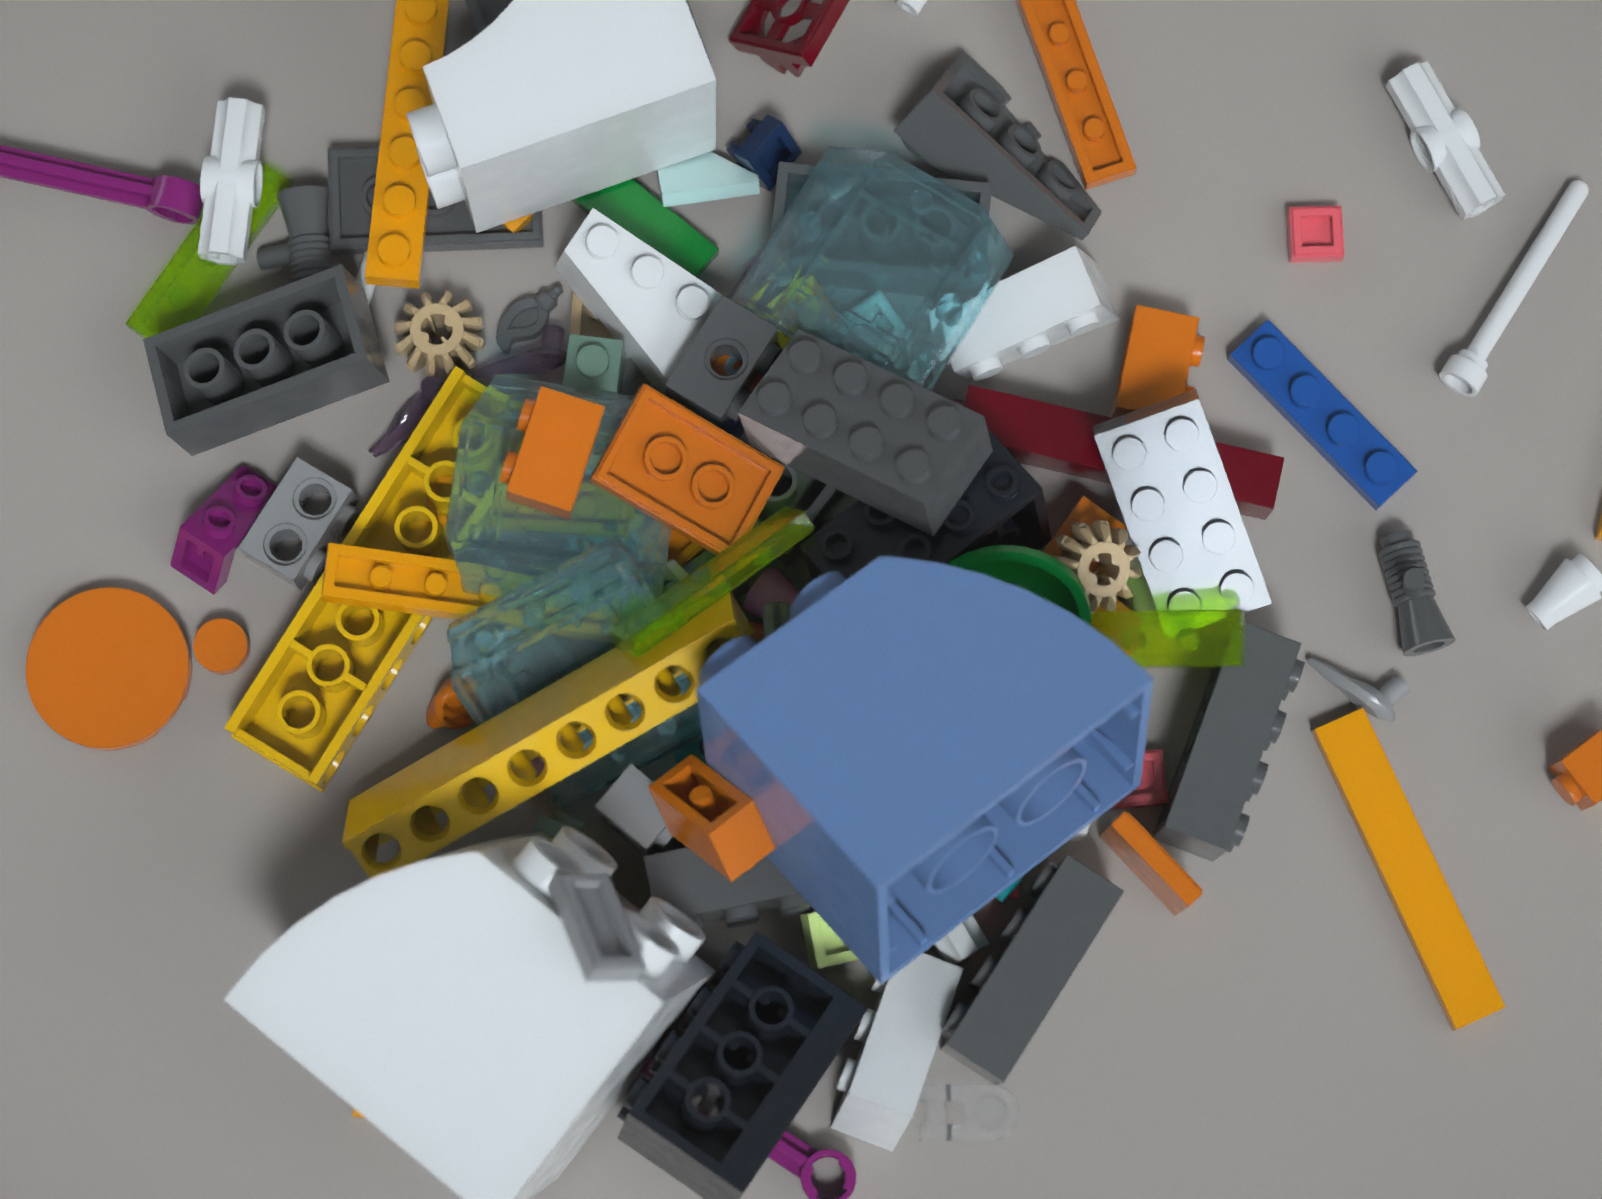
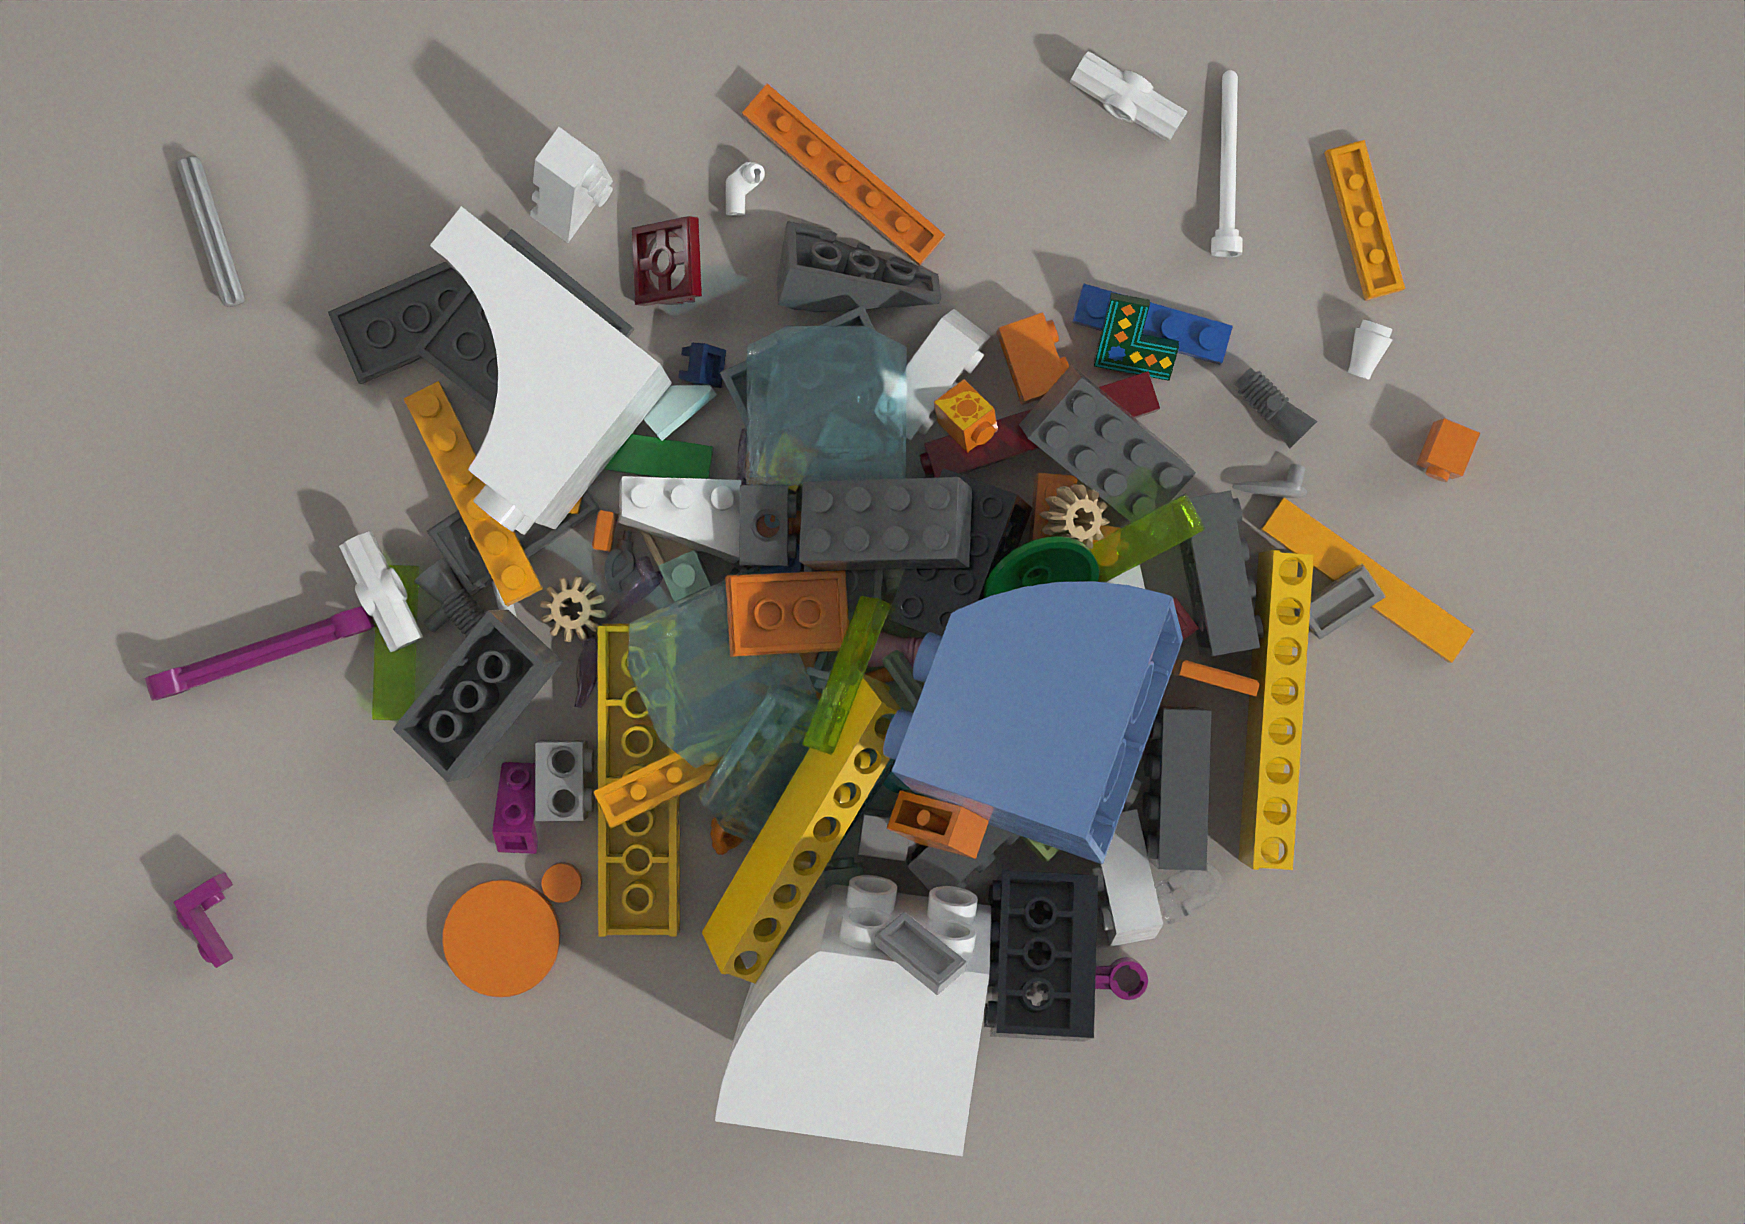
camera: 20 degrees left, 10 degrees up
(532, 269) = (604, 531): none -> orange tile
(553, 452) = (699, 655): orange brick -> none
(1036, 377) = (966, 416): none -> brick
(1205, 948) = (1274, 709): none -> yellow tile
(1272, 417) = (1125, 347): none -> dark green tile
(1315, 234) = (1080, 207): coral tile -> none
(1360, 872) = (1343, 601): none -> light grey tile

